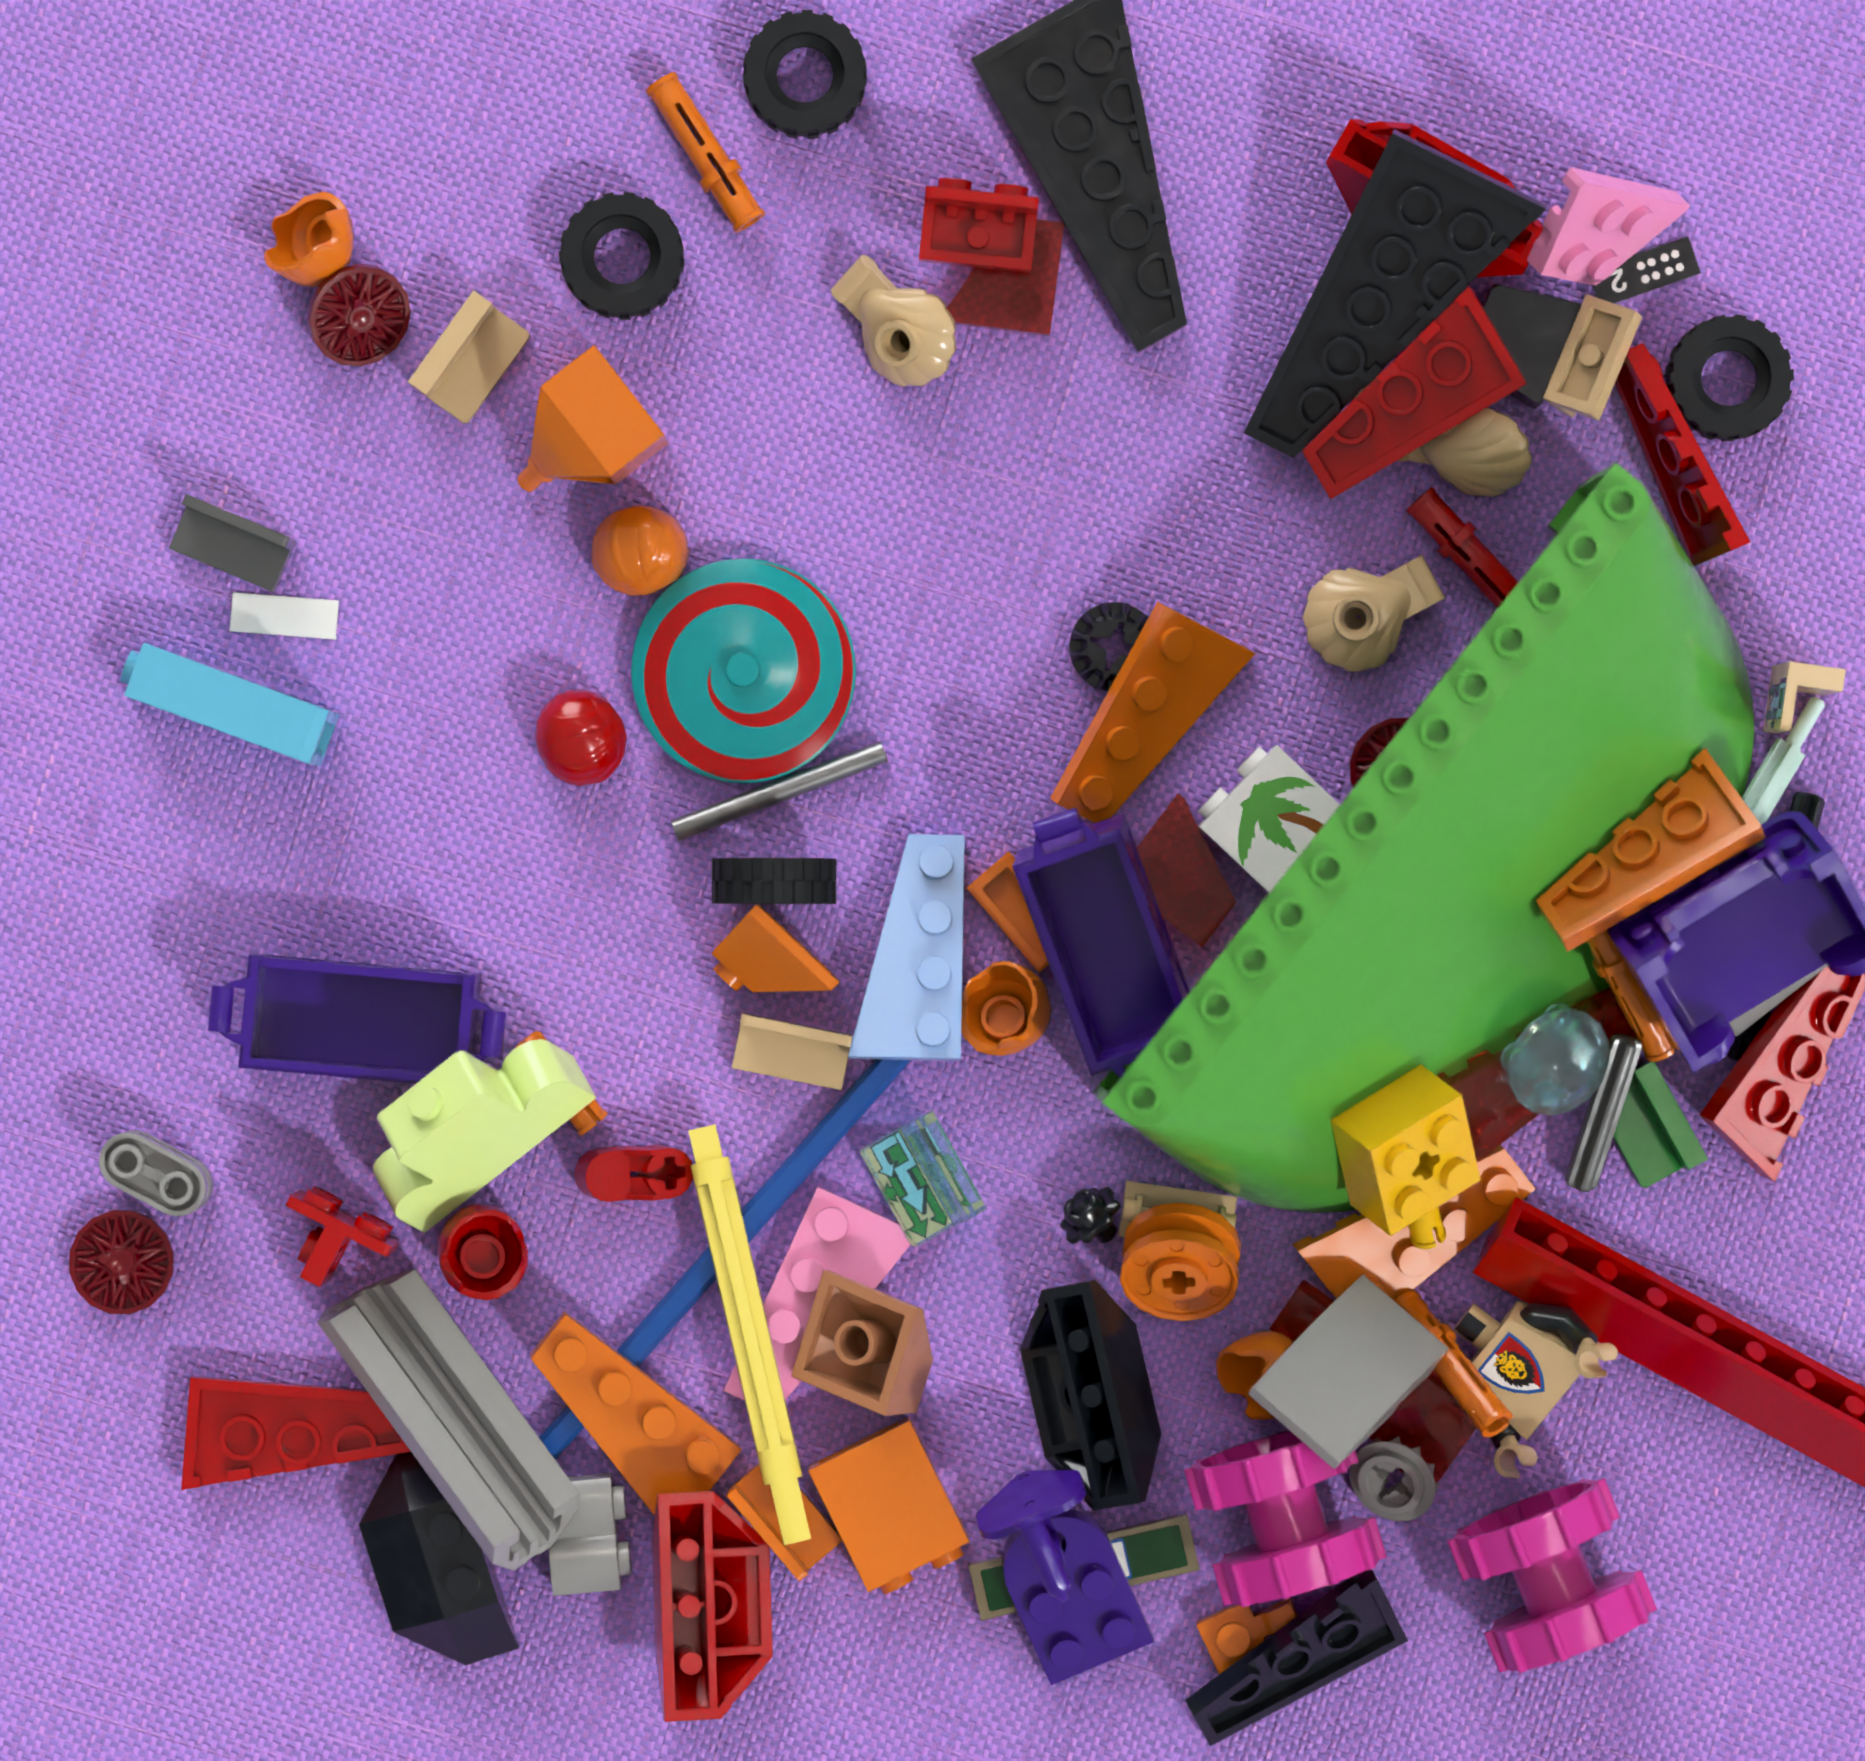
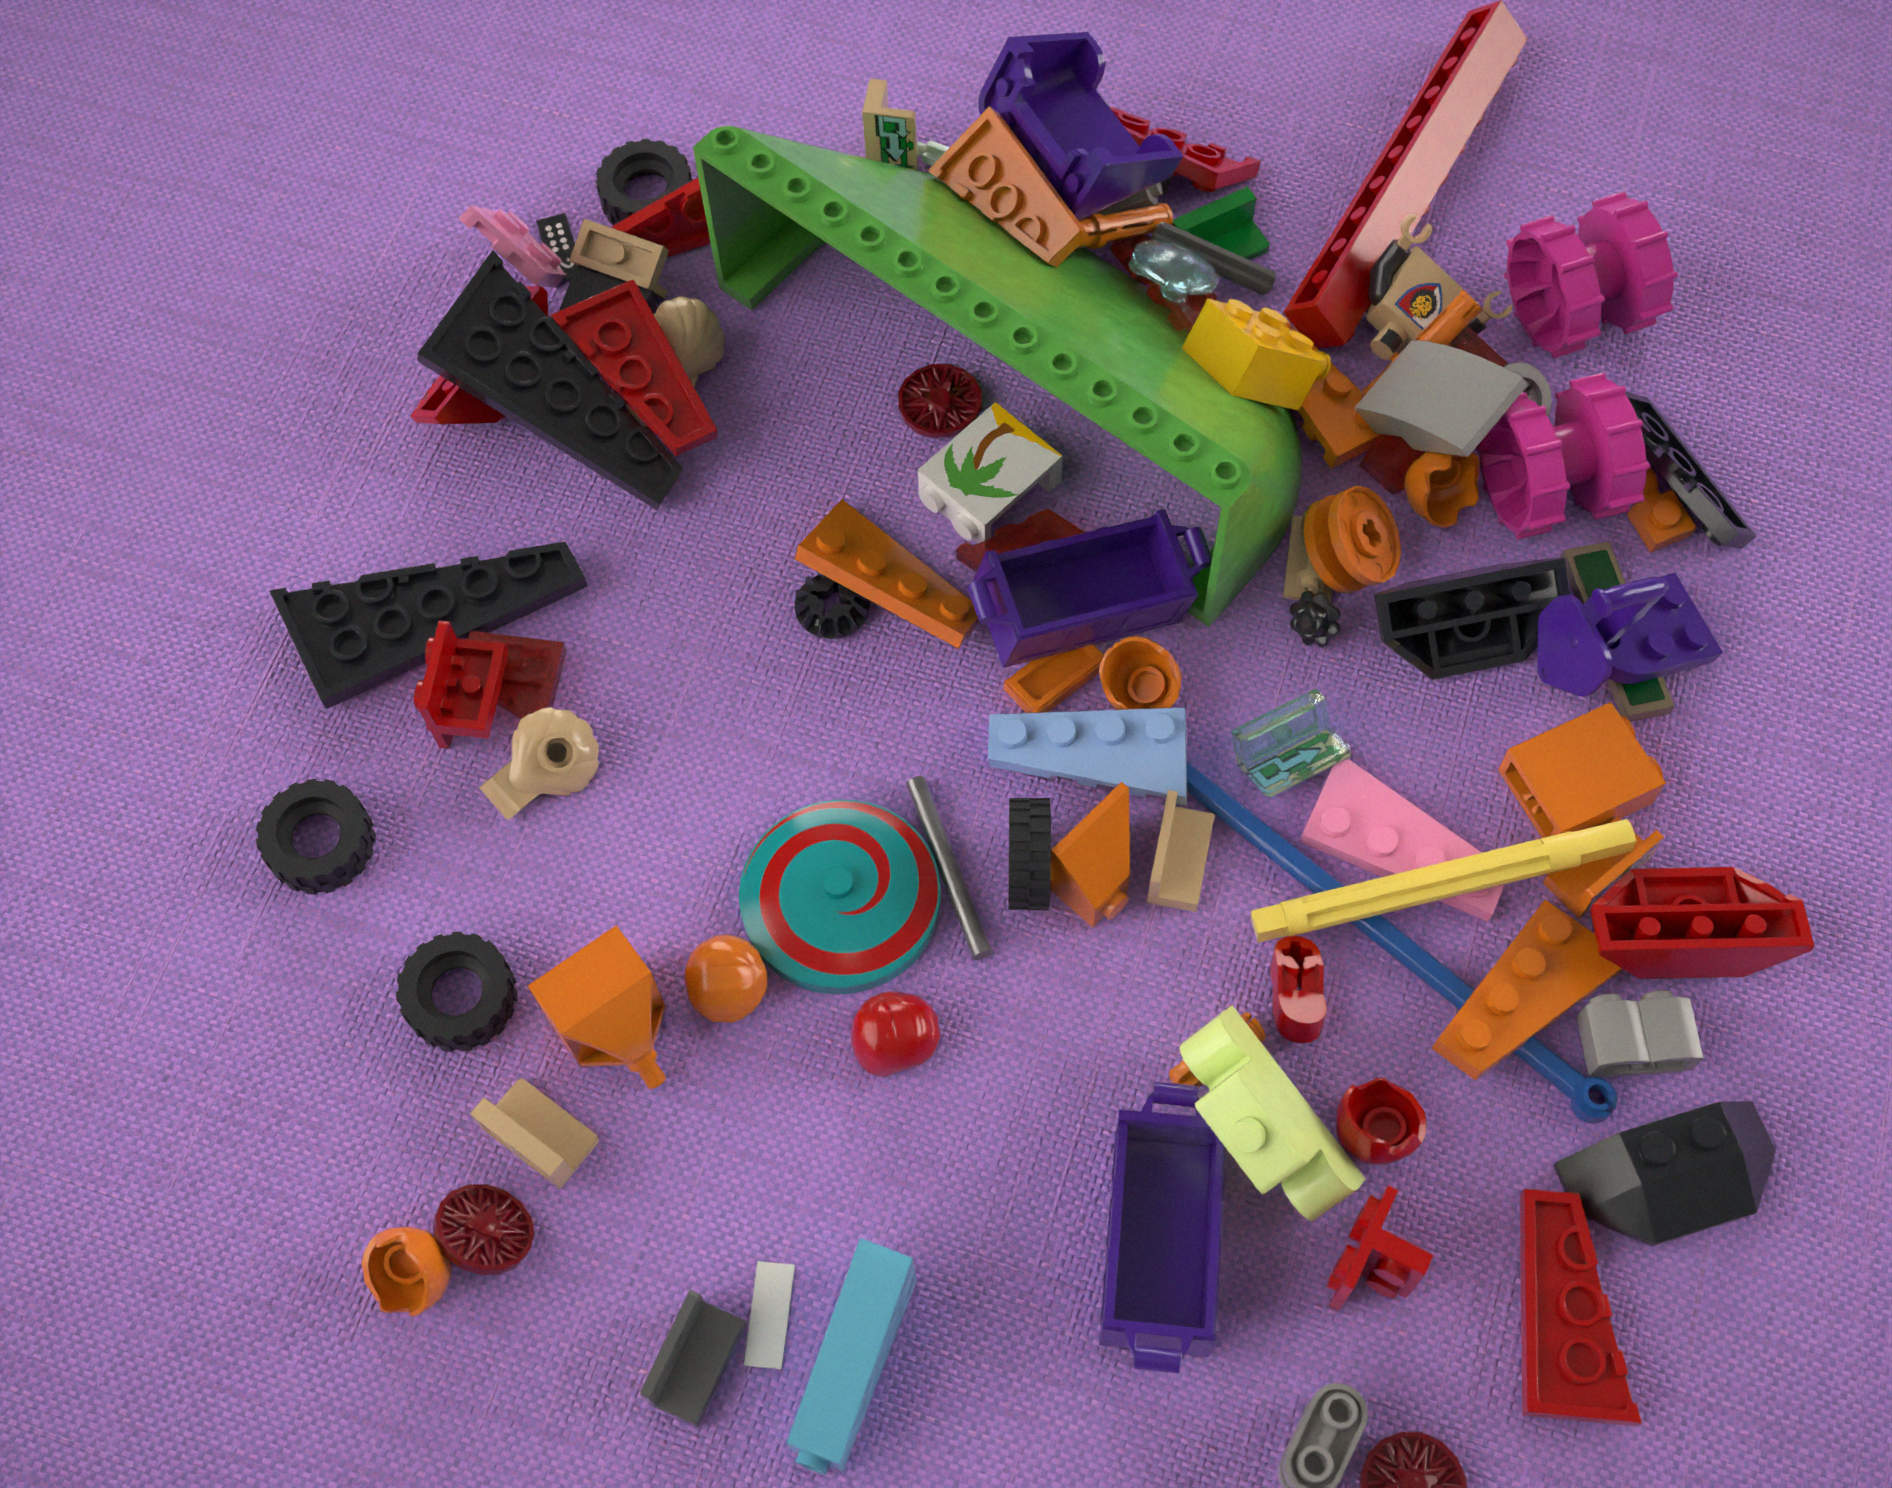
camera: 85 degrees left, 25 degrees down
(453, 1417) = (1537, 1145): light grey piece -> none
(742, 207) = (391, 909): orange pin -> none
(865, 1347) = (1443, 788): nougat slope -> none
(1378, 601) = (813, 424): tan animal -> none
(1462, 546) = (735, 377): red pin -> none

